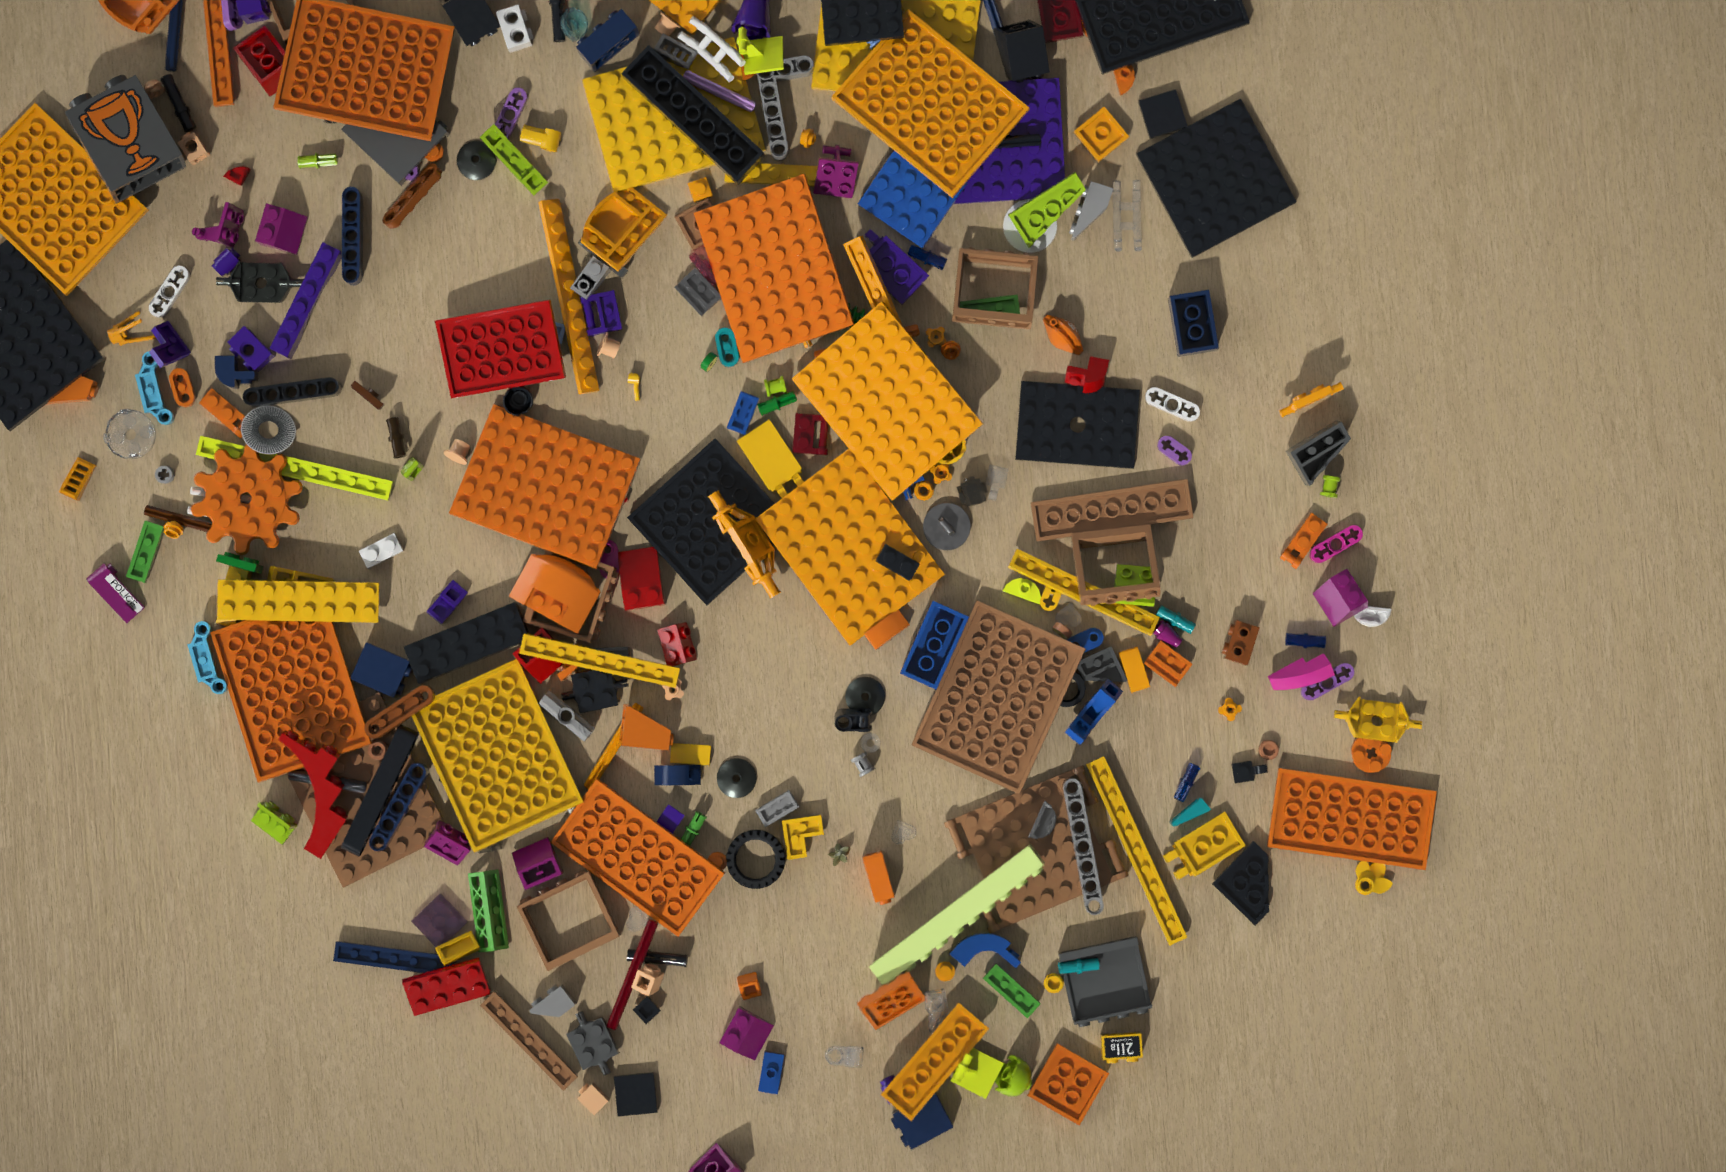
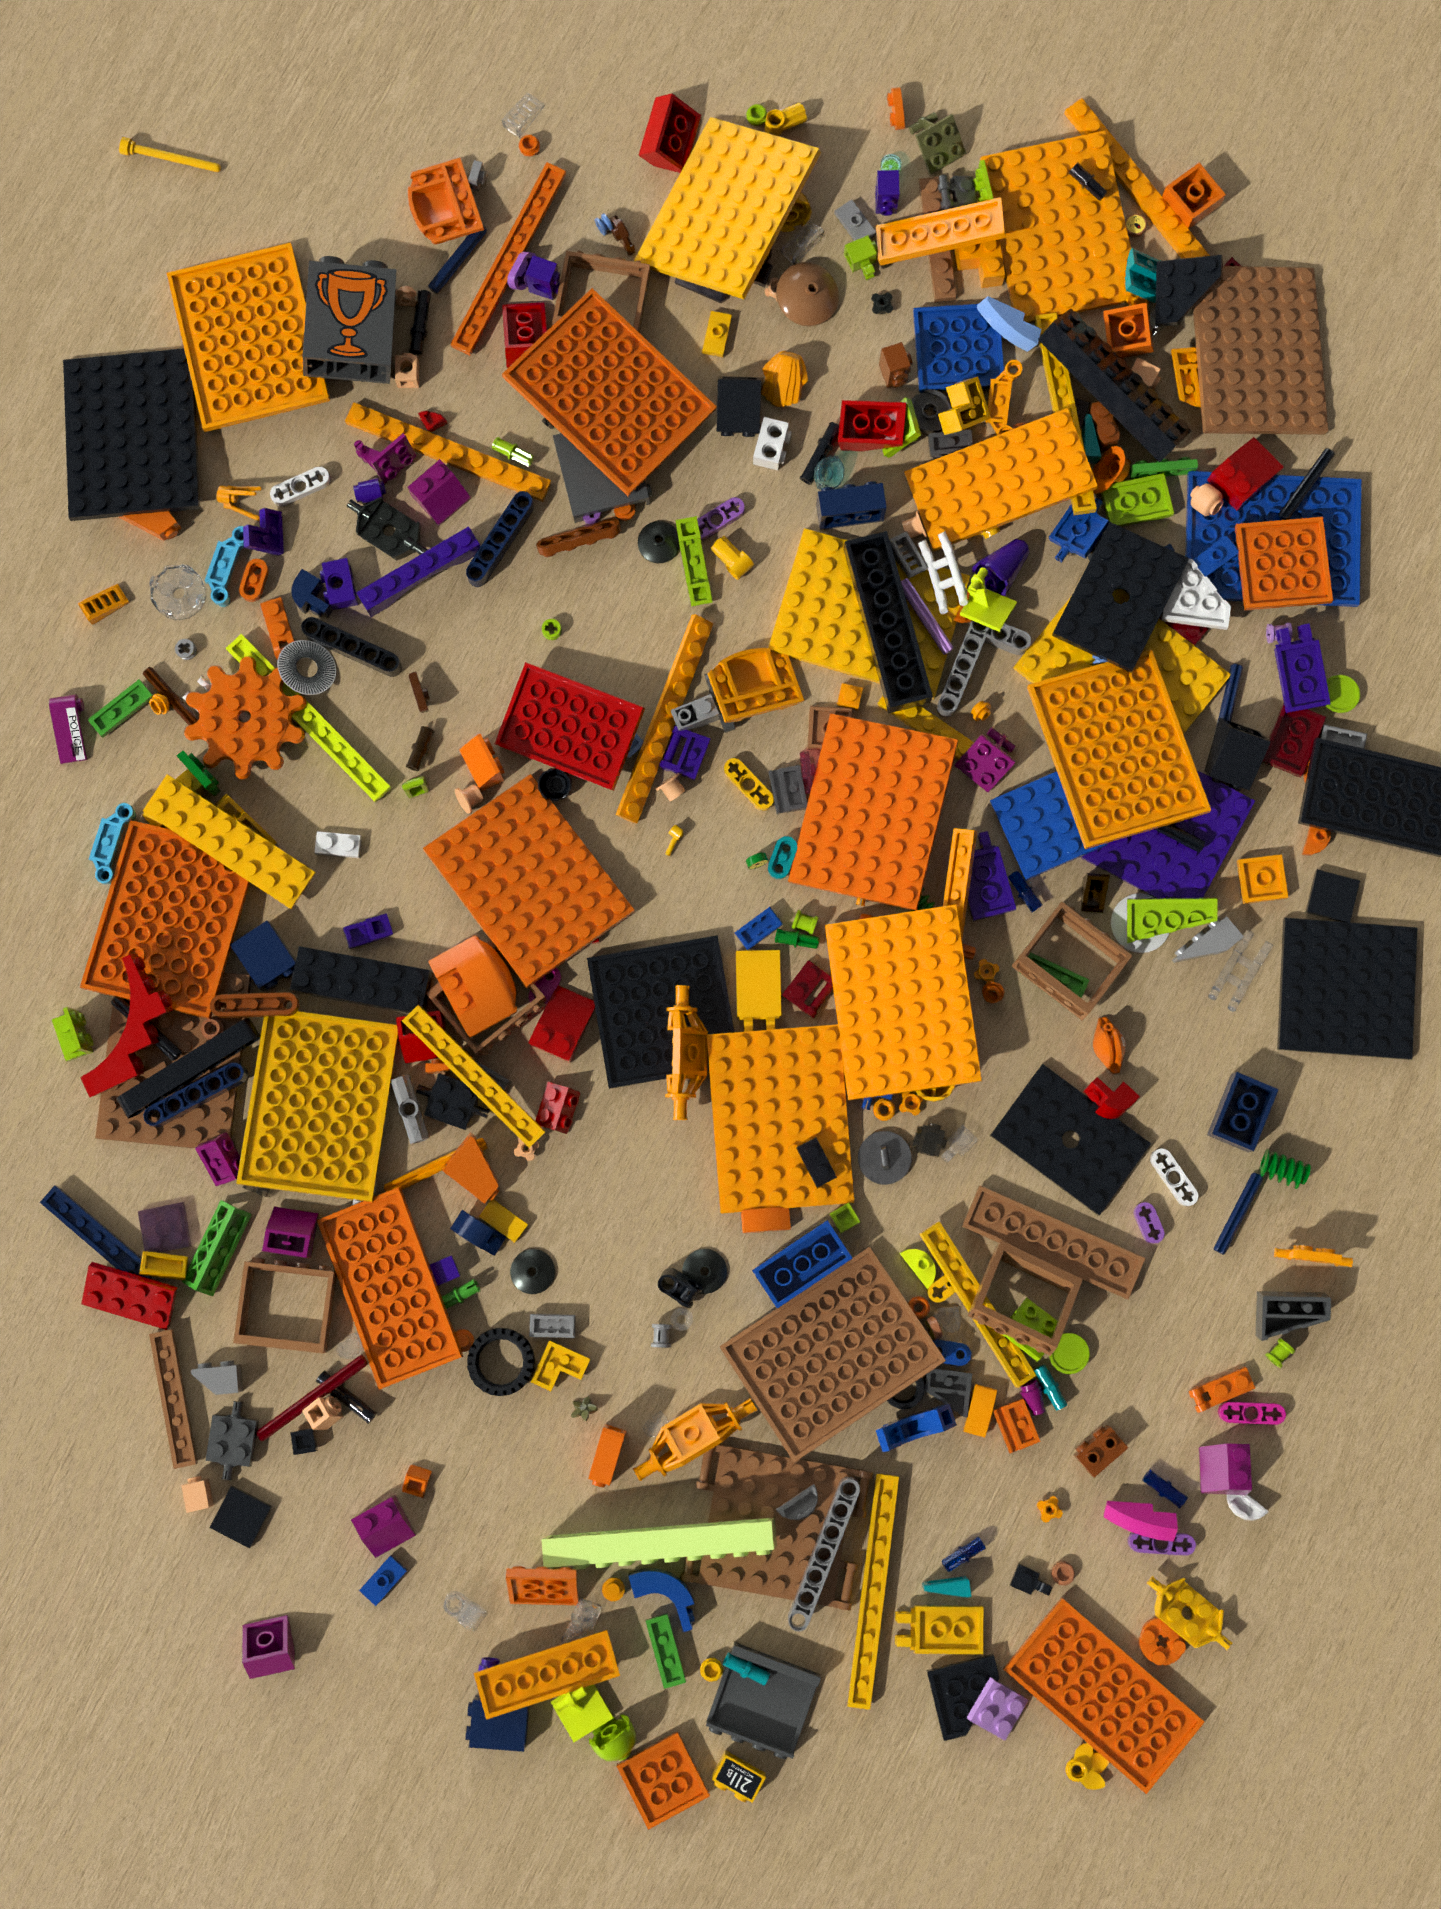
camera: 25 degrees right, 5 degrees down
(267, 191) = (449, 452): none -> light orange plate
(436, 287) = (547, 635): none -> lime bush
(453, 421) = (483, 767): none -> orange slope
(681, 305) = (742, 768): none -> yellow beam
(933, 822) = (693, 1436): none -> light orange plate
(944, 590) = (844, 1217): none -> lime plate
(980, 225) = (1094, 892): none -> dark brown slope
(1046, 617) = (925, 1304): none -> orange plate
(1175, 585) = (1070, 1354): none -> lime piece
(1236, 400) = (1238, 1213): none -> dark blue axle
(1254, 345) = (1284, 1168): none -> green piece
(1280, 878) = (997, 1709): none -> lavender plate

